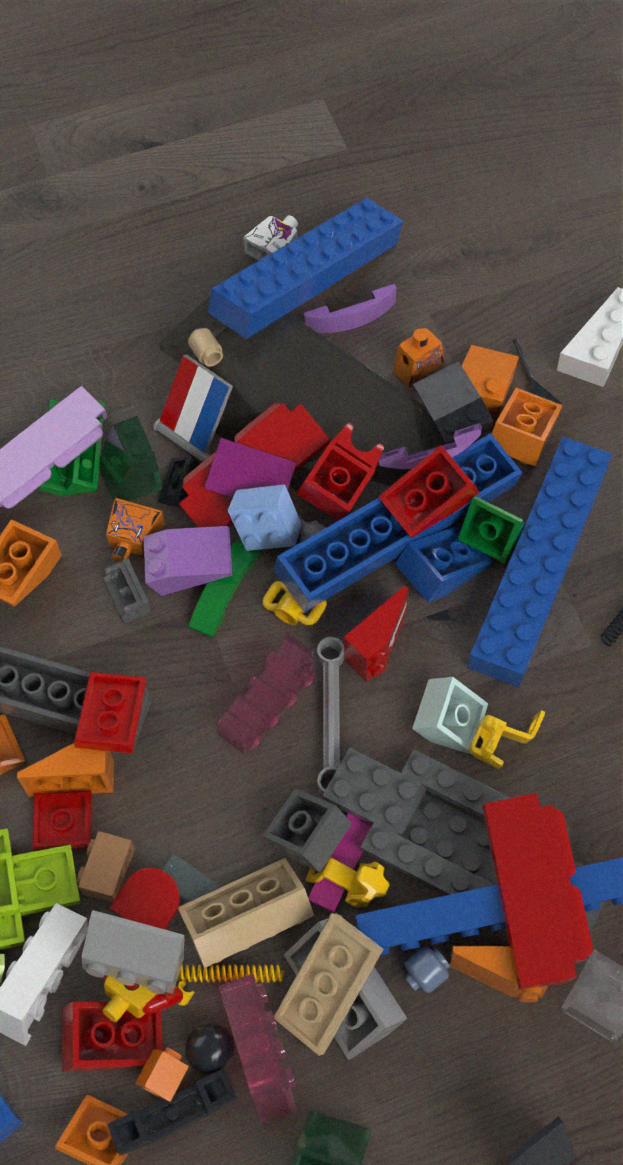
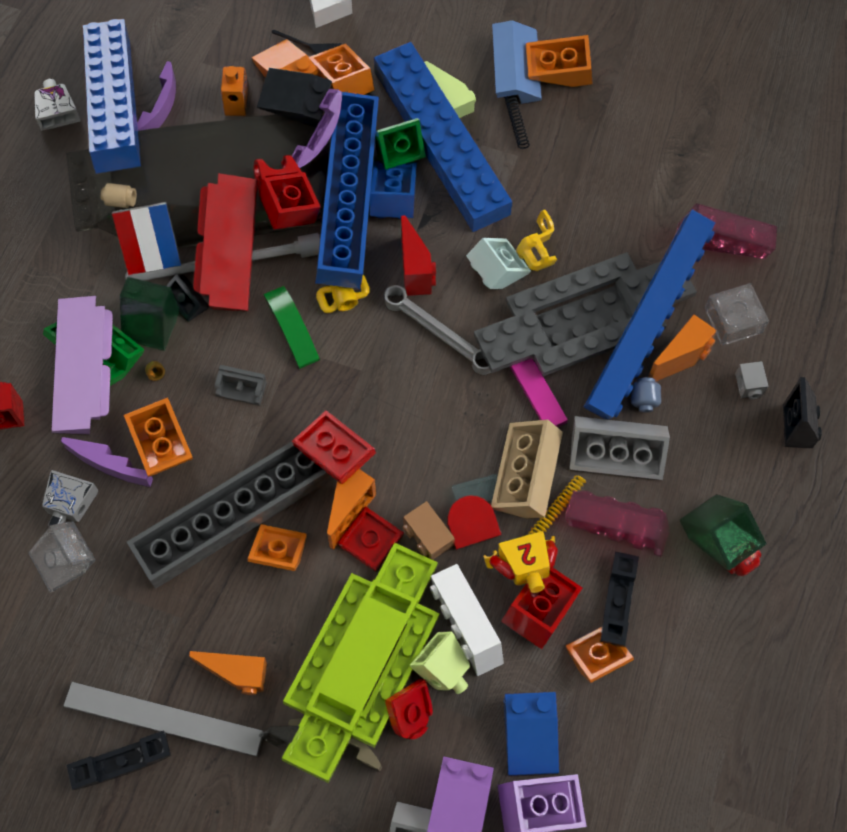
camera: 55 degrees left, 5 degrees up
(81, 512) = (155, 376): none -> pearl gold hinge
(129, 525) = (196, 349): orange torso -> none
(132, 952) = (516, 540): light grey slope -> none
(162, 1073) = (591, 588): orange brick -> none
(186, 558) = (255, 328): medium lavender slope -> none
(209, 1047) = (594, 552): black hair -> none
(245, 468) = (234, 245): magenta tile -> none
(265, 517) = (273, 260): light blue brick -> none
(268, 695) = (395, 352): clear pink wedge -> none
(307, 829) = (507, 393): dark grey brick -> none
(328, 983) = (616, 450): tan tile -> none
(361, 885) = (566, 390): yellow piece -> none
(429, 492) = (352, 151): red slope -> none
(538, 903) = (660, 289): red slope -> none
(540, 1071) = (751, 380): none -> light grey brick
(597, 533) = (454, 90): none -> yellowish green slope

